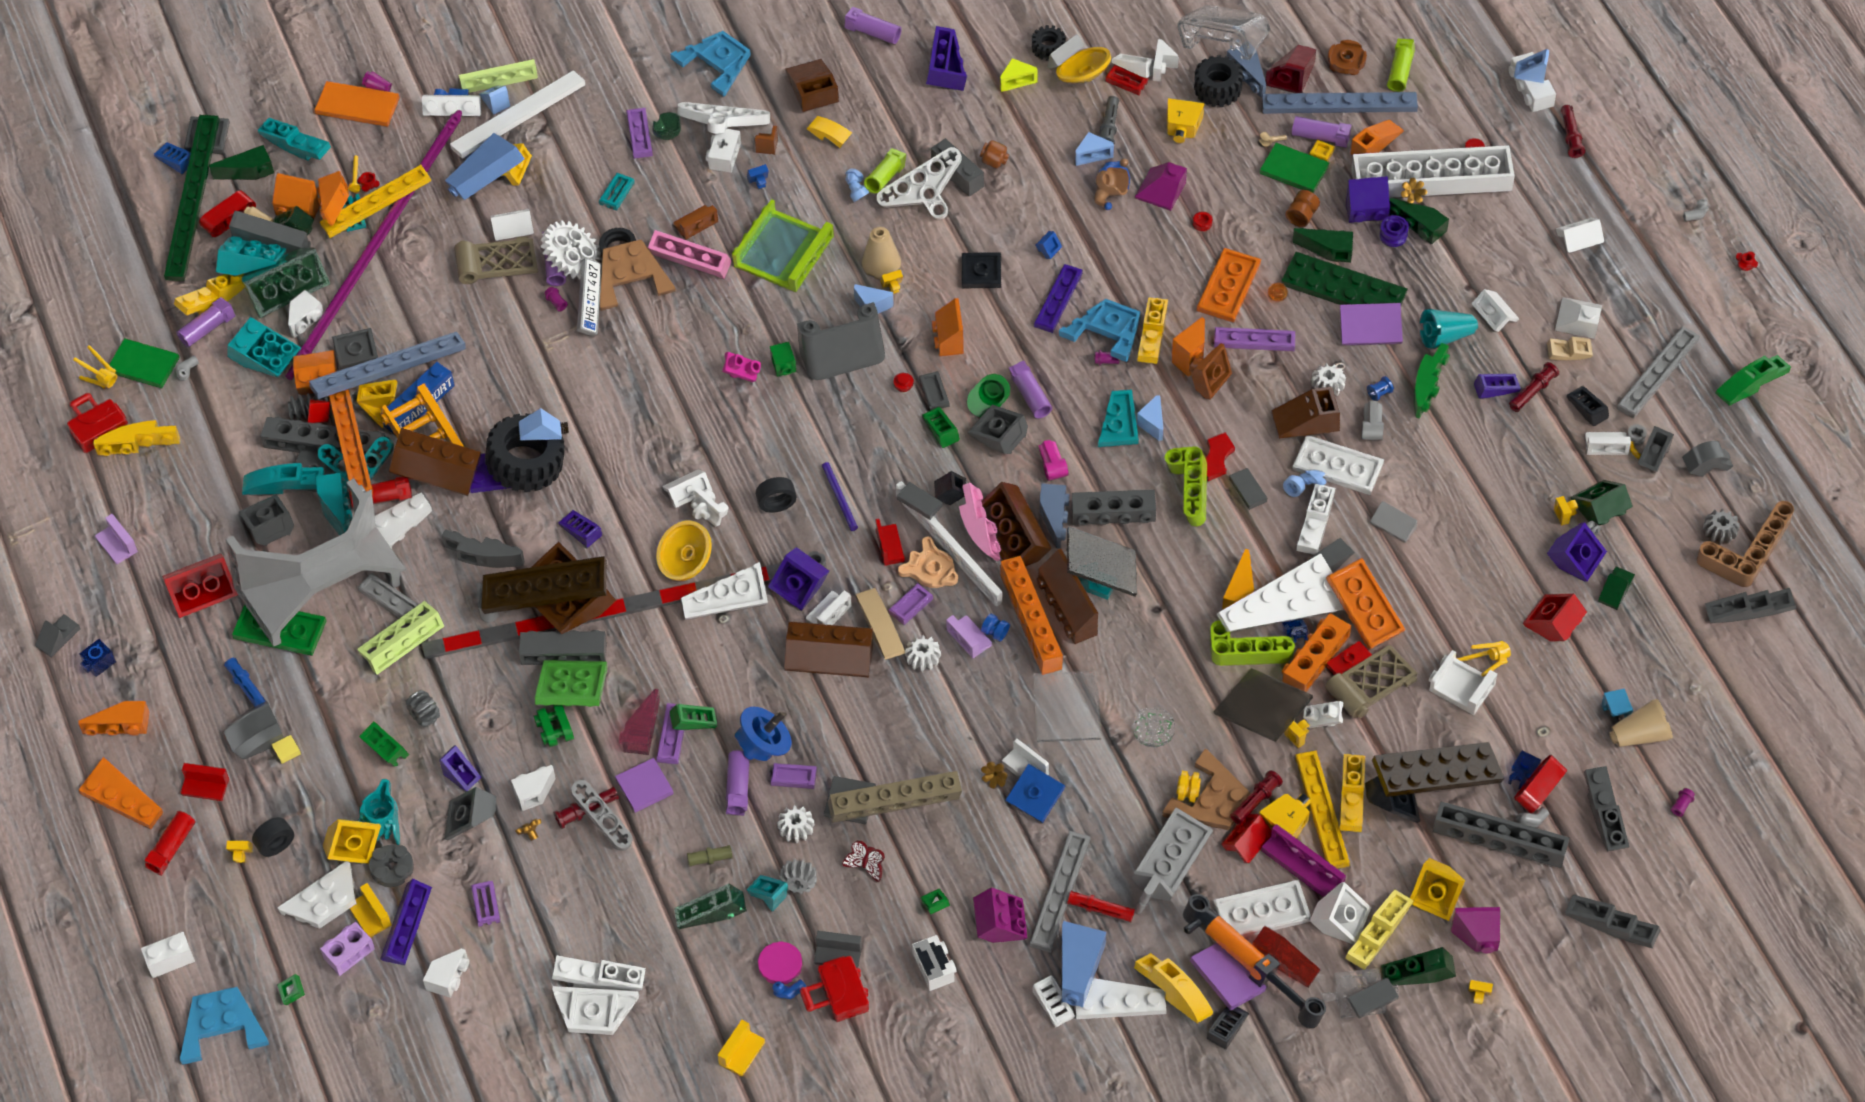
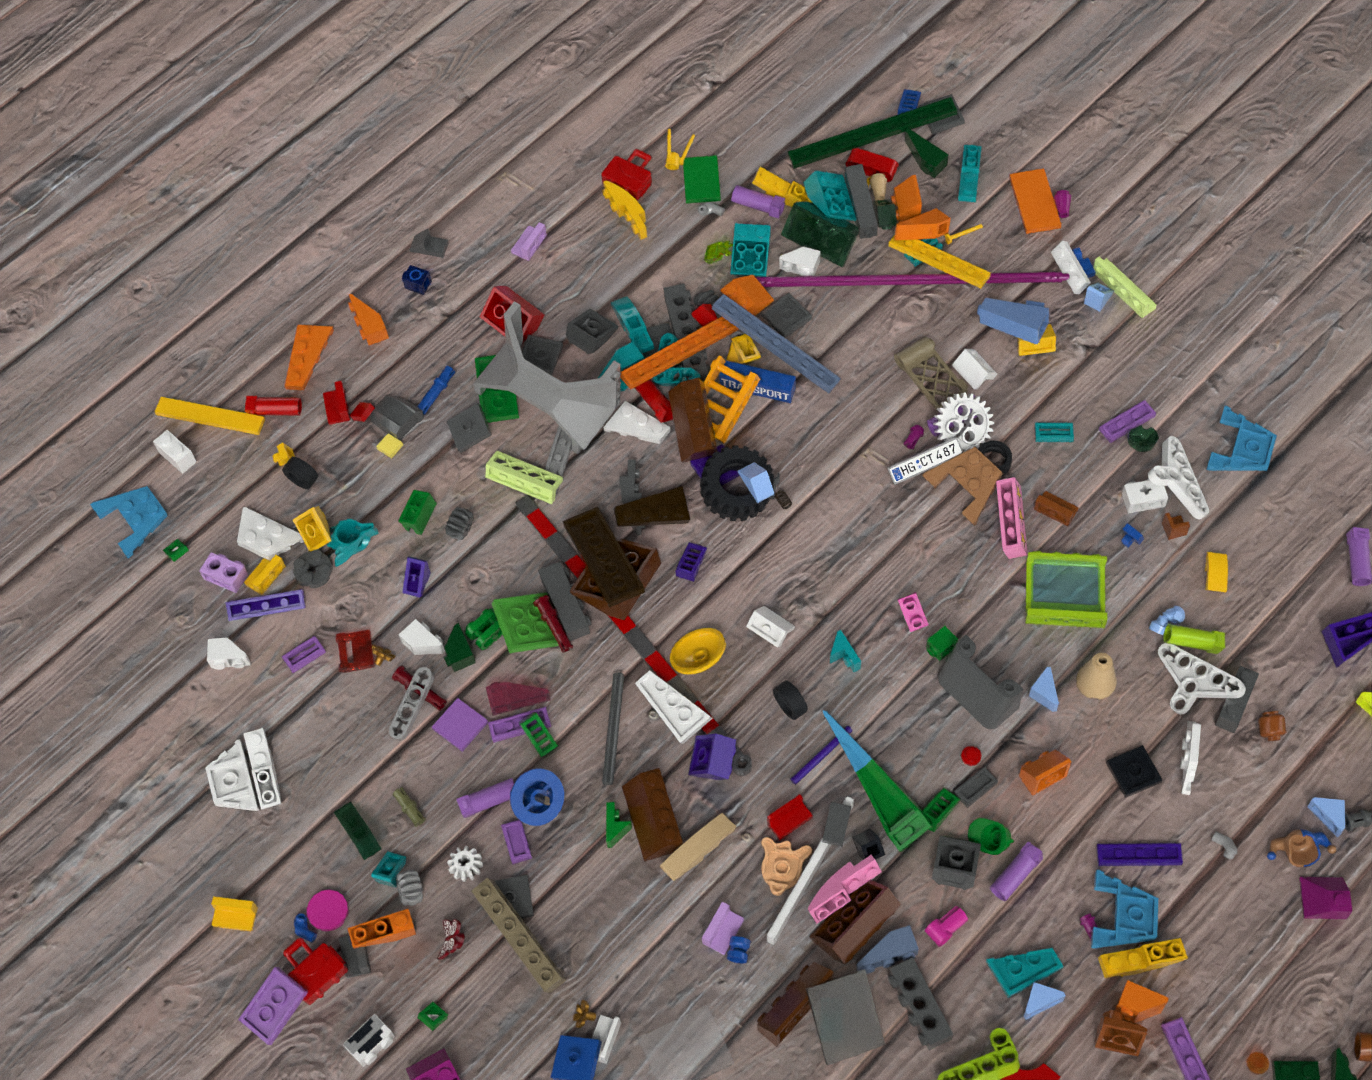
camera: 70 degrees right, 5 degrees up
(139, 912) = (210, 415): none -> yellow tile
(230, 760) = (362, 411): none -> red tile
(243, 378) = (716, 251): none -> clear neon green plate
(313, 666) = (469, 428): none -> dark grey plate
(368, 181) = (959, 241): red plate -> none
(469, 811) = (377, 604): dark grey slope -> none
(511, 532) = (657, 509): none -> dark brown wing
(511, 848) = (361, 649): none -> clear red plate
(518, 113) = (1091, 320): white tile -> none
(563, 756) = (457, 650): none -> dark green slope
(575, 660) = (549, 616): none -> dark red pin
(705, 507) = (760, 644): white hips -> none
(721, 654) = (613, 729): none -> dark grey axle
(743, 436) = (844, 650): none -> teal slope
(813, 84) = (1260, 534): reddish brown slope -> none
(825, 687) = (614, 827): none -> green slope
(830, 608) = (696, 797): white panel -> none
(830, 909) = (382, 930): none -> orange slope
(858, 1035) = (273, 1005): none -> medium lavender tile
(892, 281) = (1076, 698): yellow tile -> none
(911, 604) = (734, 865): medium lavender tile -> none
(922, 653) = (685, 904): white gear -> none
(926, 455) = (896, 810): none -> green plate
(989, 217) = (1191, 753): none -> white wing
(1031, 615) = (763, 976): orange brick -> none
(1049, 245) = (1193, 820): blue tile -> none
(1081, 231) = (1227, 843): none -> light grey arm
(1202, 221) = (1306, 954): red tile -> none
(1228, 285) = (1242, 1010): orange tile -> none

